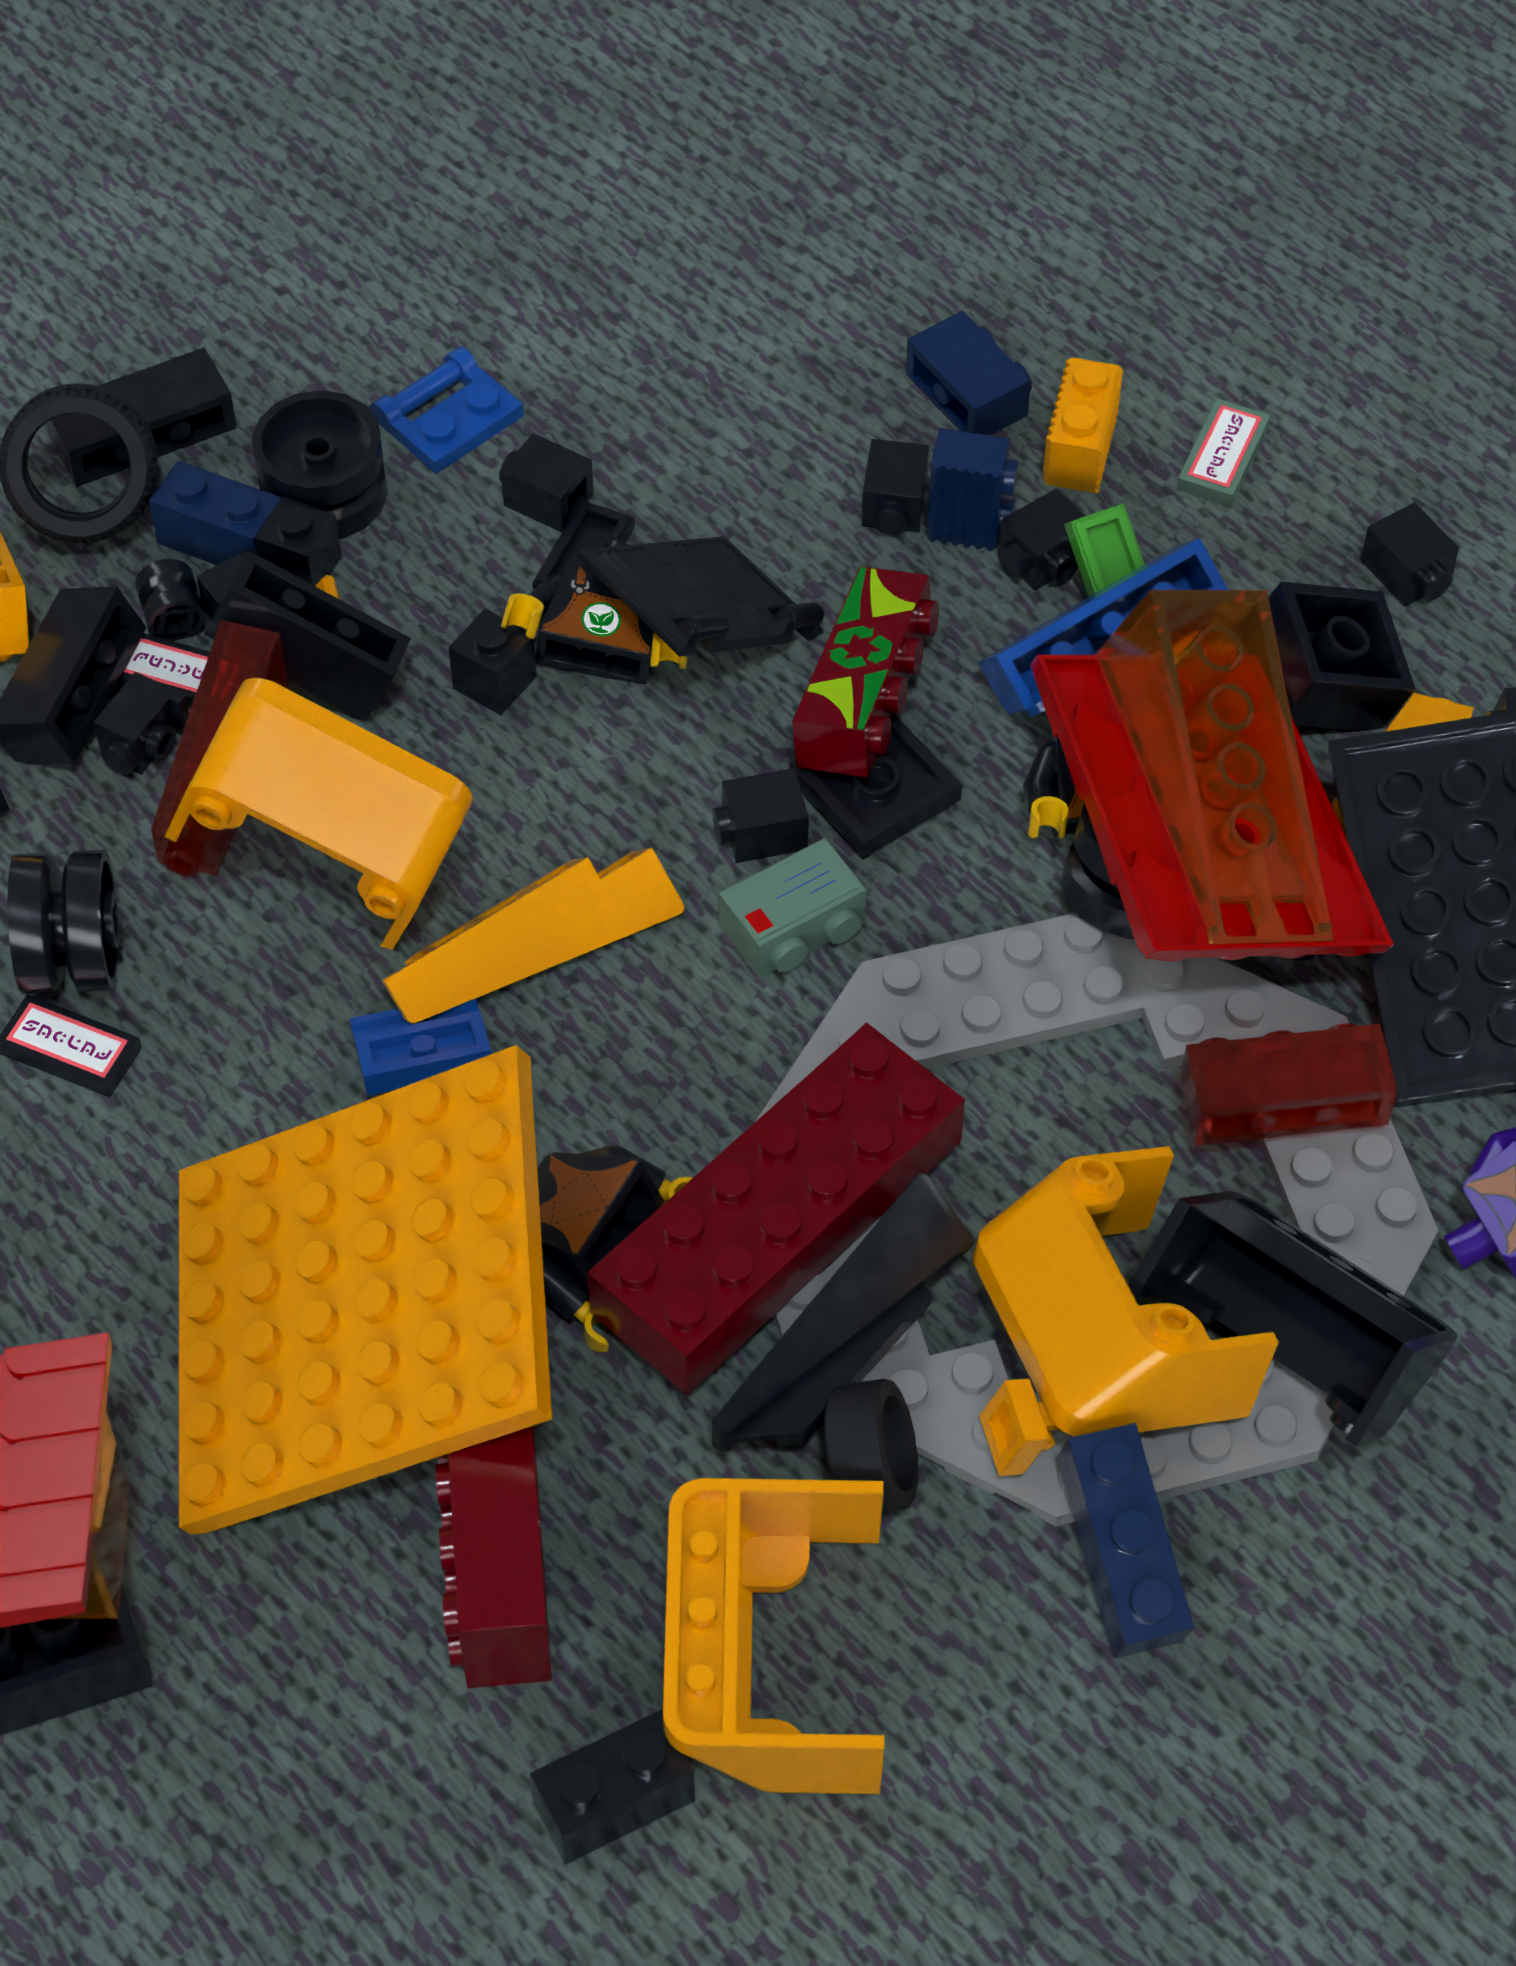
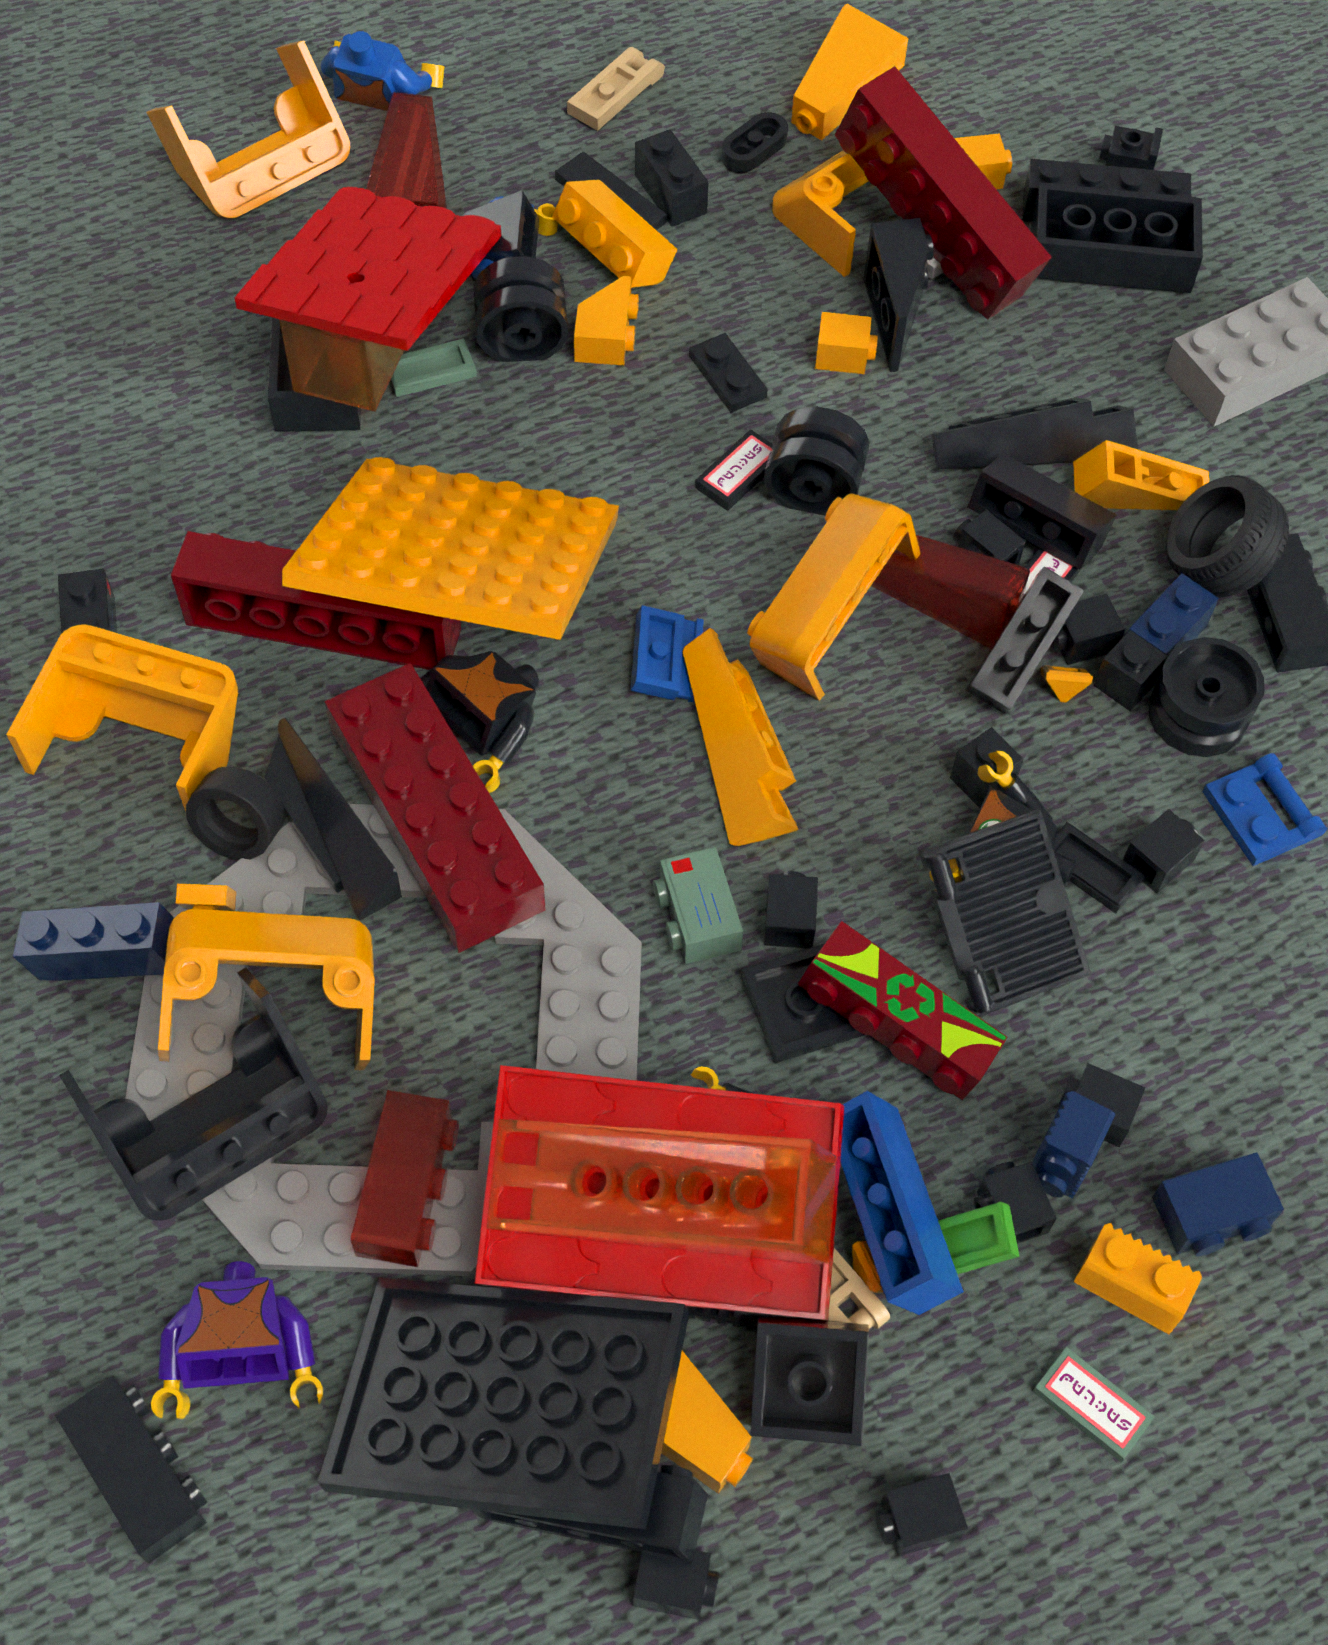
camera: 105 degrees right, 5 degrees up
(170, 600) = (1098, 582): black wheel -> none

